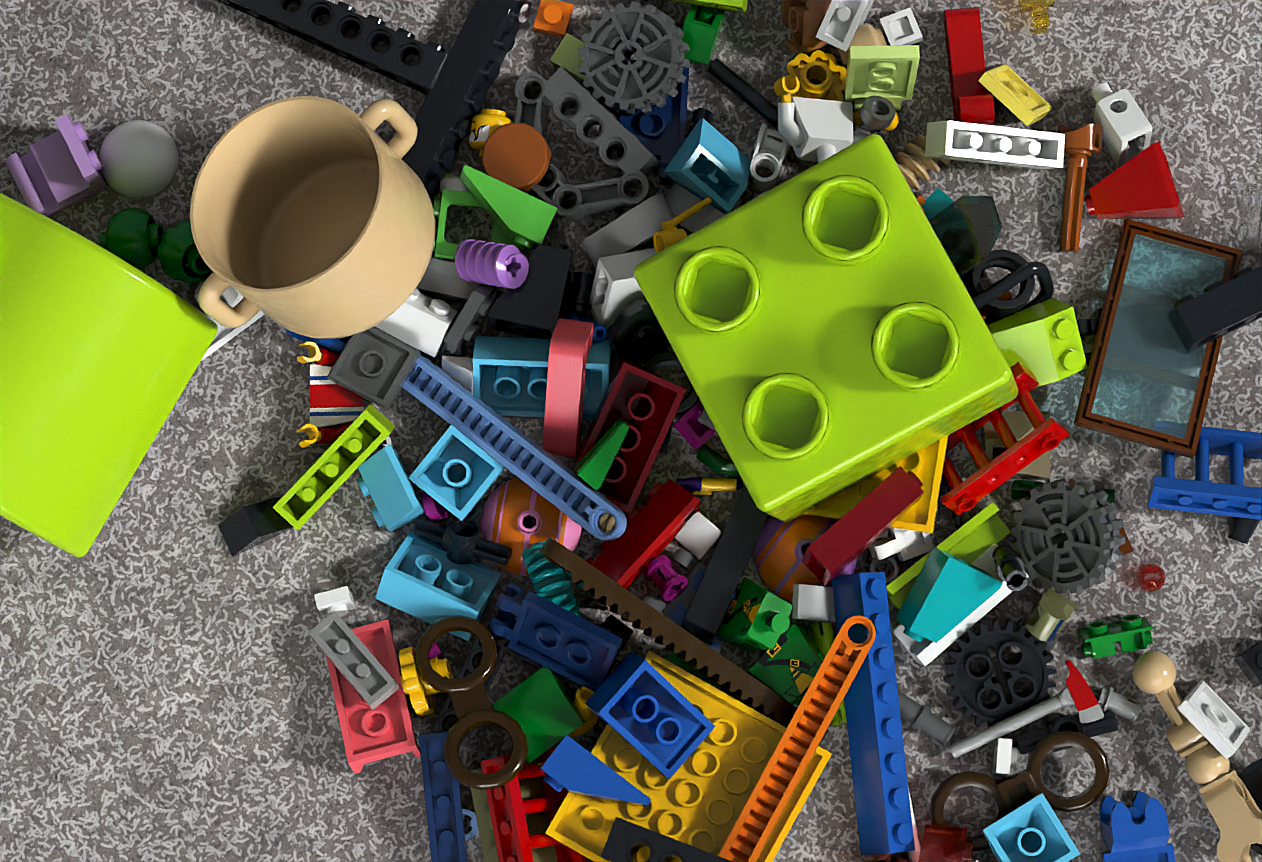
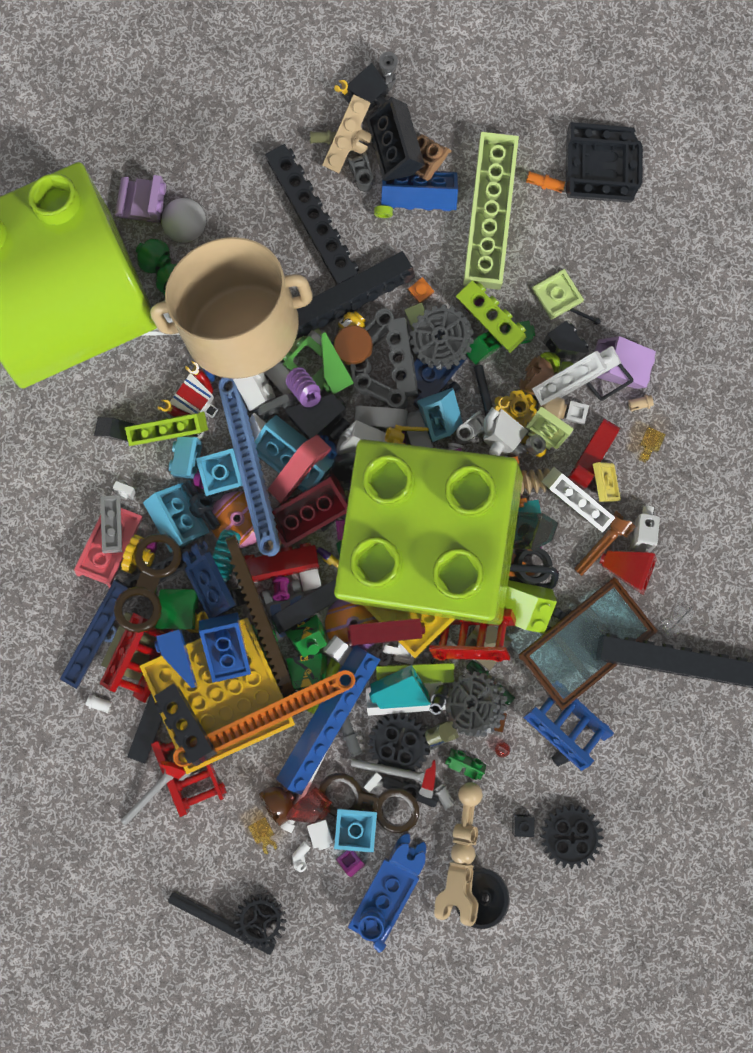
camera: 25 degrees right, 5 degrees up
(374, 366) = (218, 396): dark grey tile -> none
(599, 459) = (285, 514): green slope -> none
(1214, 719) = (481, 836): white tile -> none

